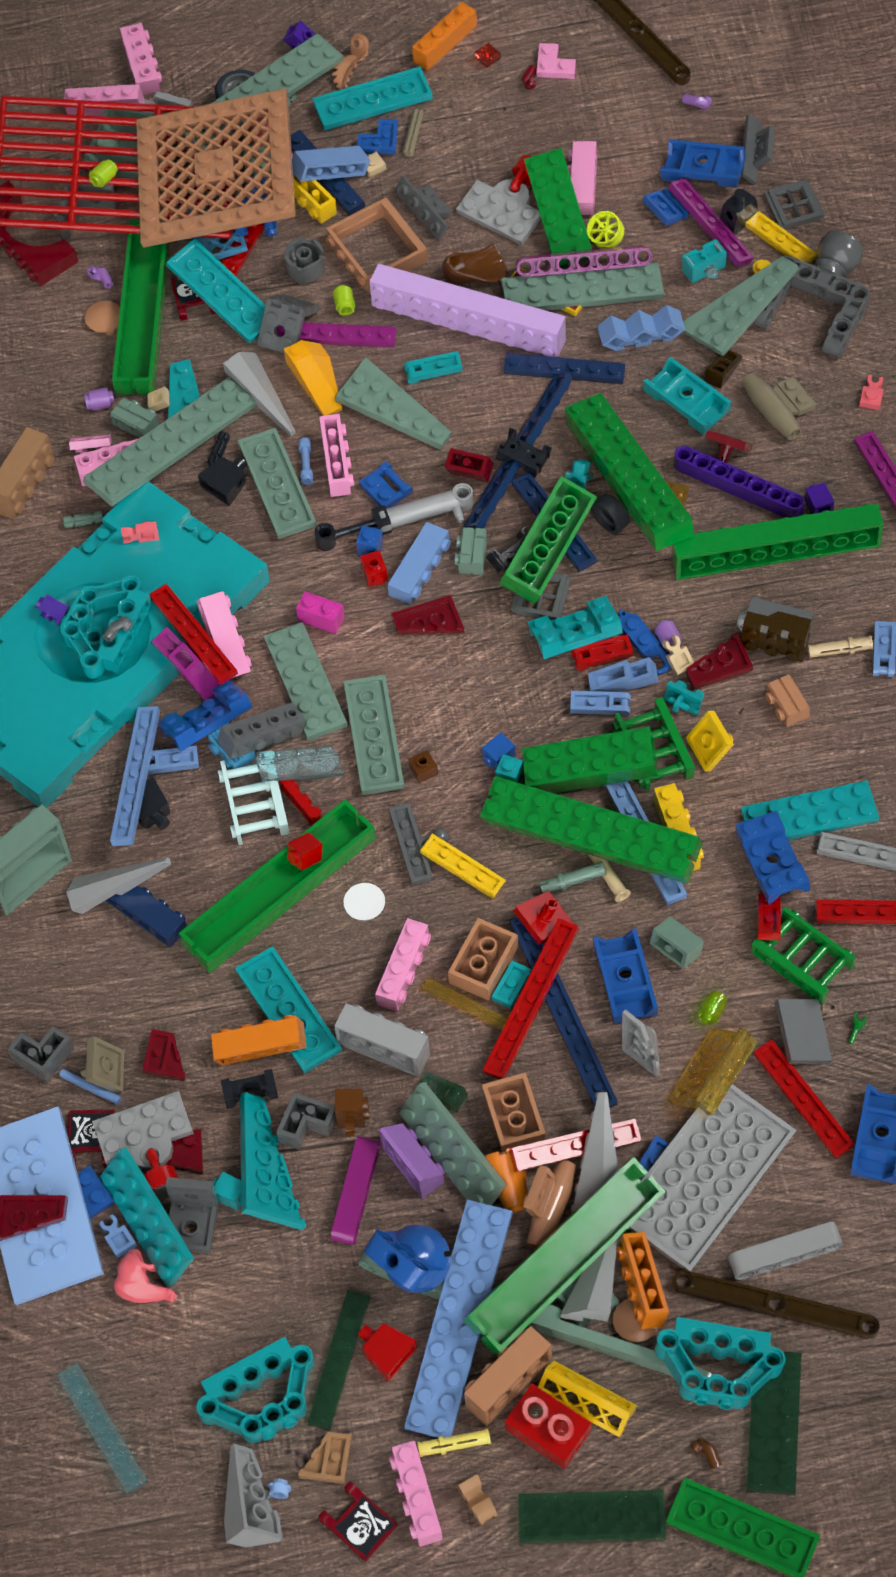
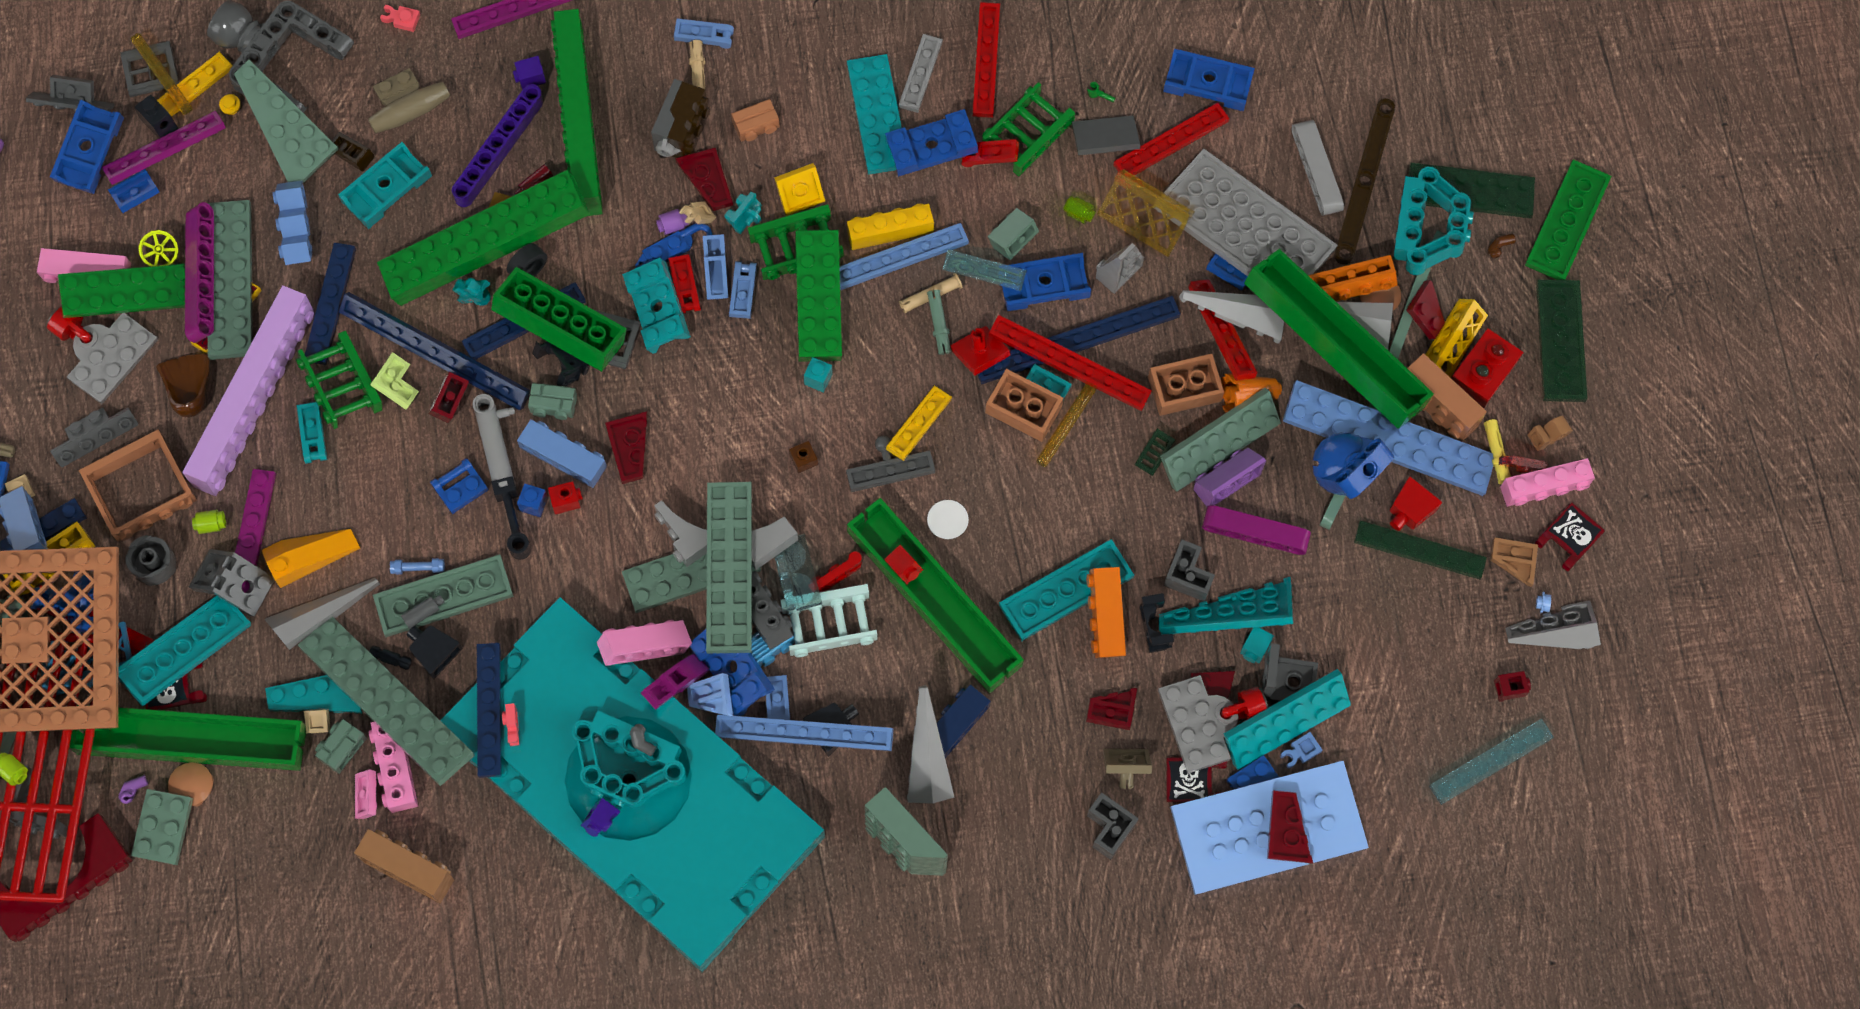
camera: 95 degrees left, 10 degrees up
(66, 300) = (162, 827): none -> sand green plate
(77, 1080) = (1139, 785): medium blue bar -> none
(83, 519) = (466, 801): sand green axle -> none
(99, 399) = (307, 786): medium lavender brick -> none
(134, 1284) = (1349, 732): coral piece -> none
(163, 515) = (489, 710): none -> dark blue plate
(176, 700) = (711, 695): none -> light blue wing
(183, 1442) = (1518, 679): none -> dark red brick
(193, 634) = (644, 669): red plate -> none
(257, 463) = (422, 611): none -> dark grey cylinder
(257, 1363) = (1452, 585): teal brick -> none
(294, 695) = (729, 568): none -> sand green plate
(320, 612) = (614, 551): dark pink brick -> none
(326, 674) = (692, 540): none -> light grey arch
(335, 456) = (418, 531): bright pink brick -> none
(351, 1110) = (1180, 527): reddish brown brick -> none
(373, 735) = (771, 500): sand green plate -> none
(382, 399) = (348, 485): sand green wing -> none
(382, 1039) = (1108, 497): light grey brick -> none
(402, 965) = (1025, 480): bright pink brick -> none
(435, 1463) = (1522, 464): none -> clear red plate
(483, 398) = (354, 364): none -> green fence
(484, 417) = (389, 381): none -> yellowish green plate
(495, 749) = (793, 385): blue brick -> none
(527, 455) = (438, 347): black piece -> none
(548, 1200) = (1277, 359): nougat plate -> none
(591, 830) = (895, 298): green piece -> none
(614, 1362) = (1426, 310): none -> dark red wing
(631, 915) = (984, 270): none -> clear light blue tile
(702, 516) = (535, 178): none -> dark red cylinder
(705, 262) = (218, 155): teal piece -> none
(727, 444) = (452, 148): dark red tile -> none
(785, 210) = (161, 74): none -> clear yellow axle

